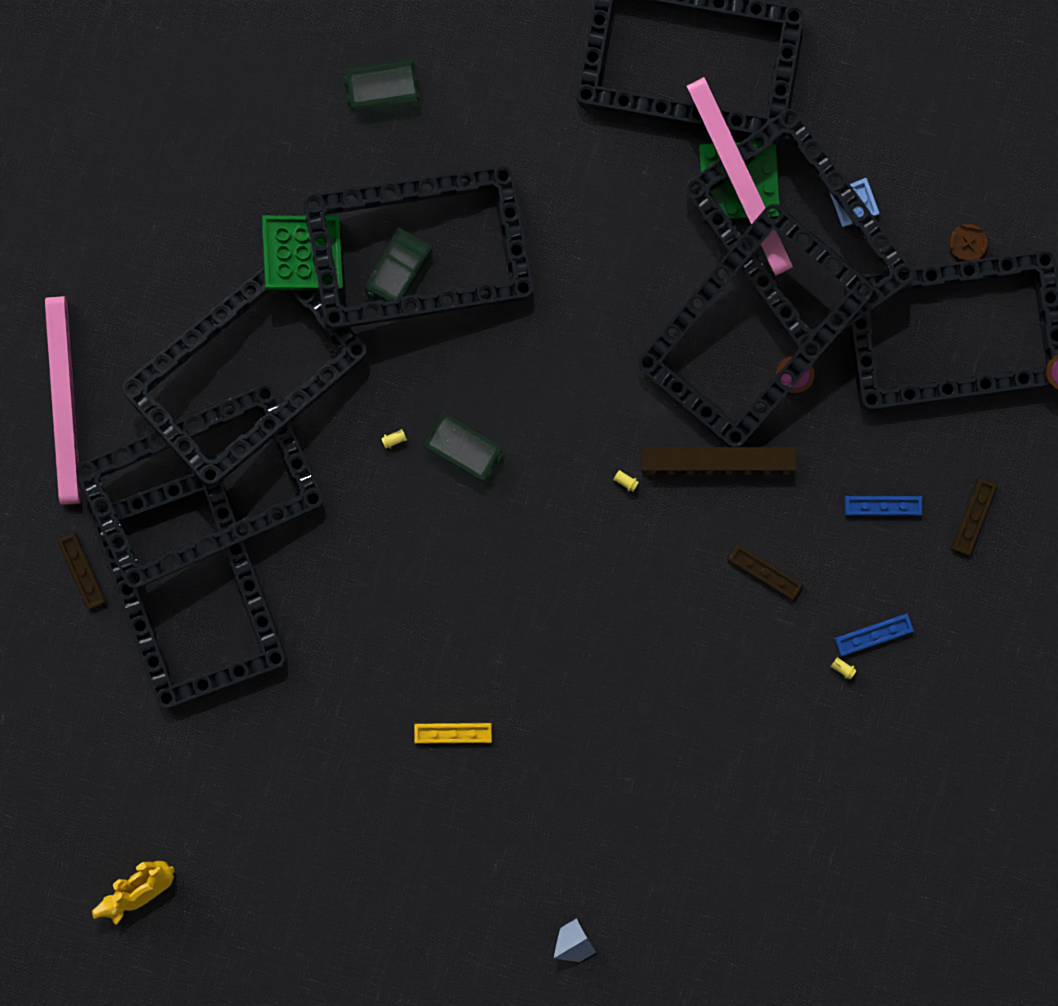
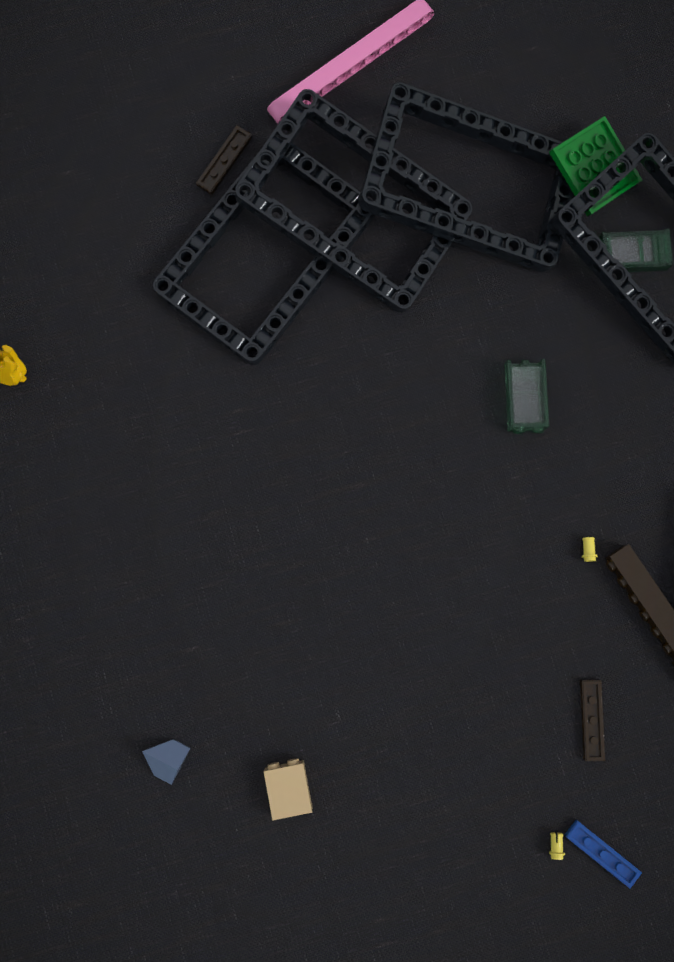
camera: 55 degrees right, 5 degrees down
(393, 439) = (494, 336): light yellow pin -> none
(453, 733) = (282, 539): yellow tile -> none
(659, 858) = (288, 789): none -> tan brick

